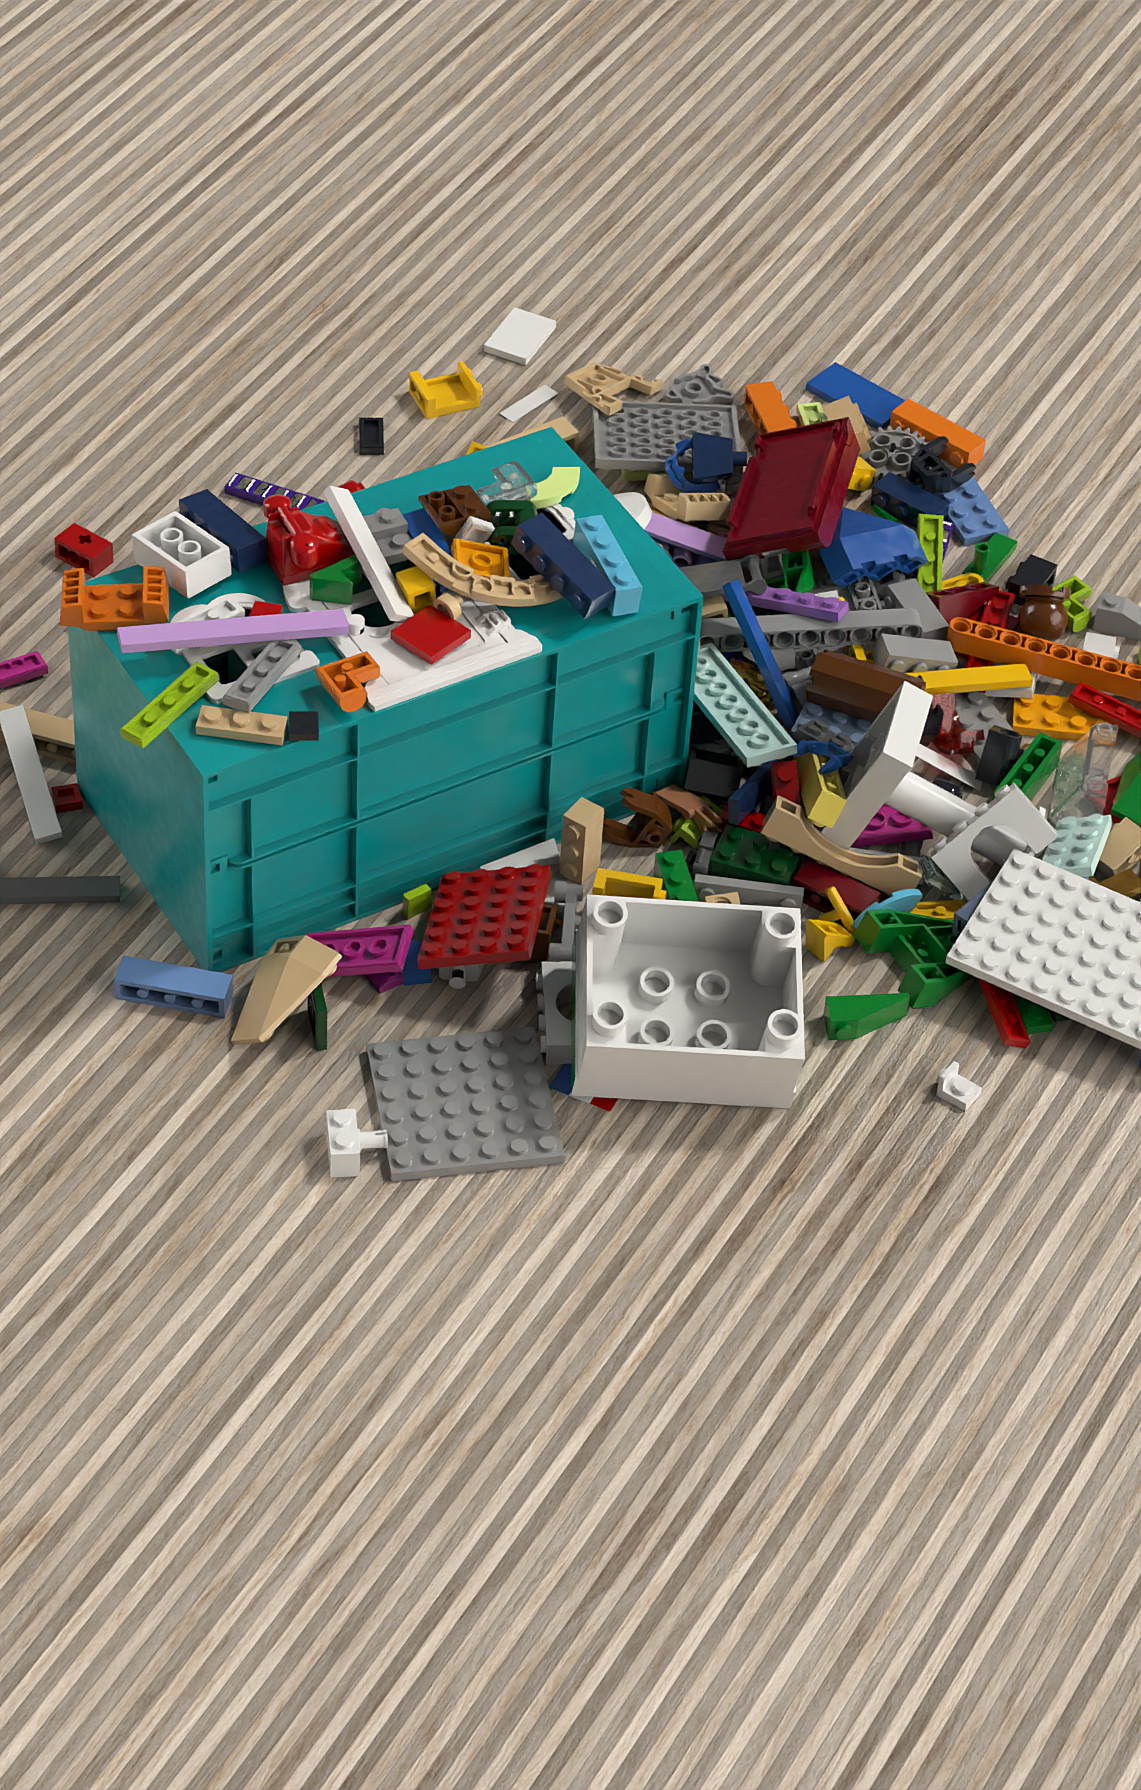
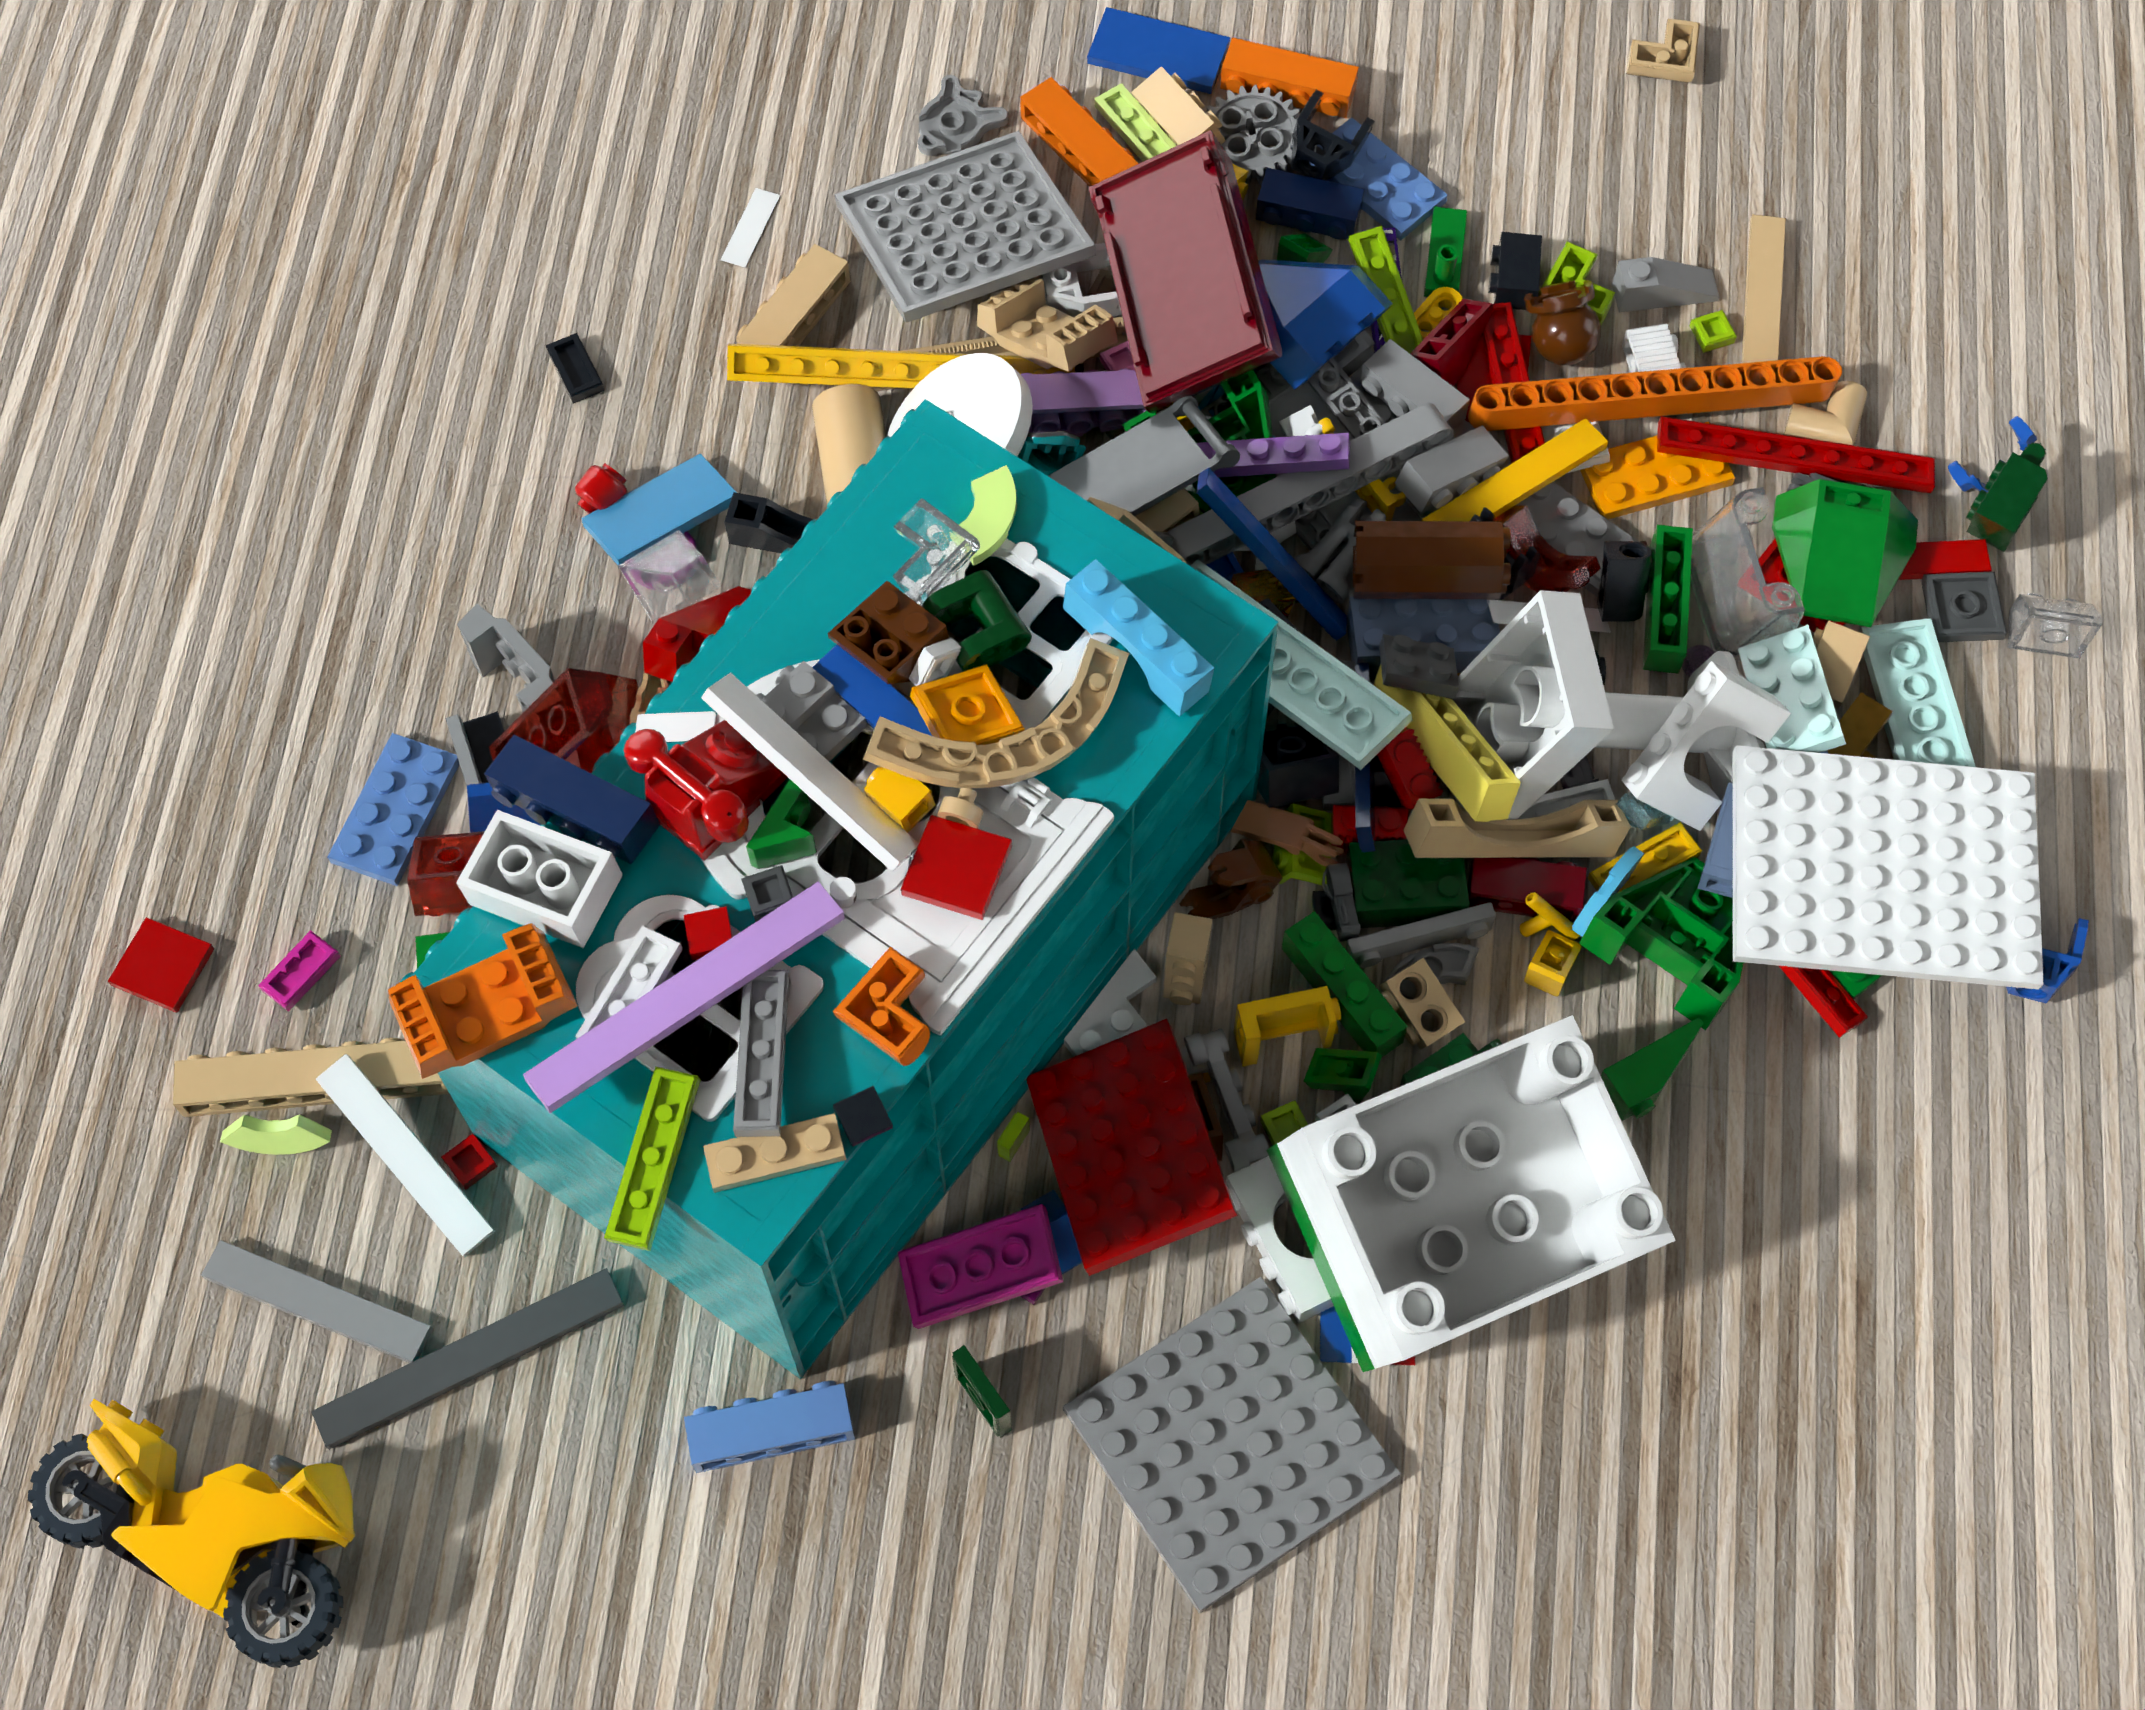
camera: 20 degrees left, 20 degrees up
(83, 549) = (289, 726): red brick -> none
(257, 491) = (497, 524): tile -> none
(282, 982) = (928, 1392): tan wedge -> none
(310, 604) = (767, 891): none -> dark grey tile
(347, 1141) = (1122, 1589): white brick -> none
(445, 393) = (637, 256): yellow panel -> none
(519, 336) = (686, 121): white tile -> none
(563, 565) = (1091, 679): dark blue brick -> none
(599, 382) = (830, 159): tan wing -> none
(676, 472) = (1018, 294): blue helmet -> none
(714, 458) = (1058, 255): dark blue torso -> none
(837, 755) = (1461, 693): blue helmet -> none
(956, 1088) = (1817, 1133): white bracket -> none

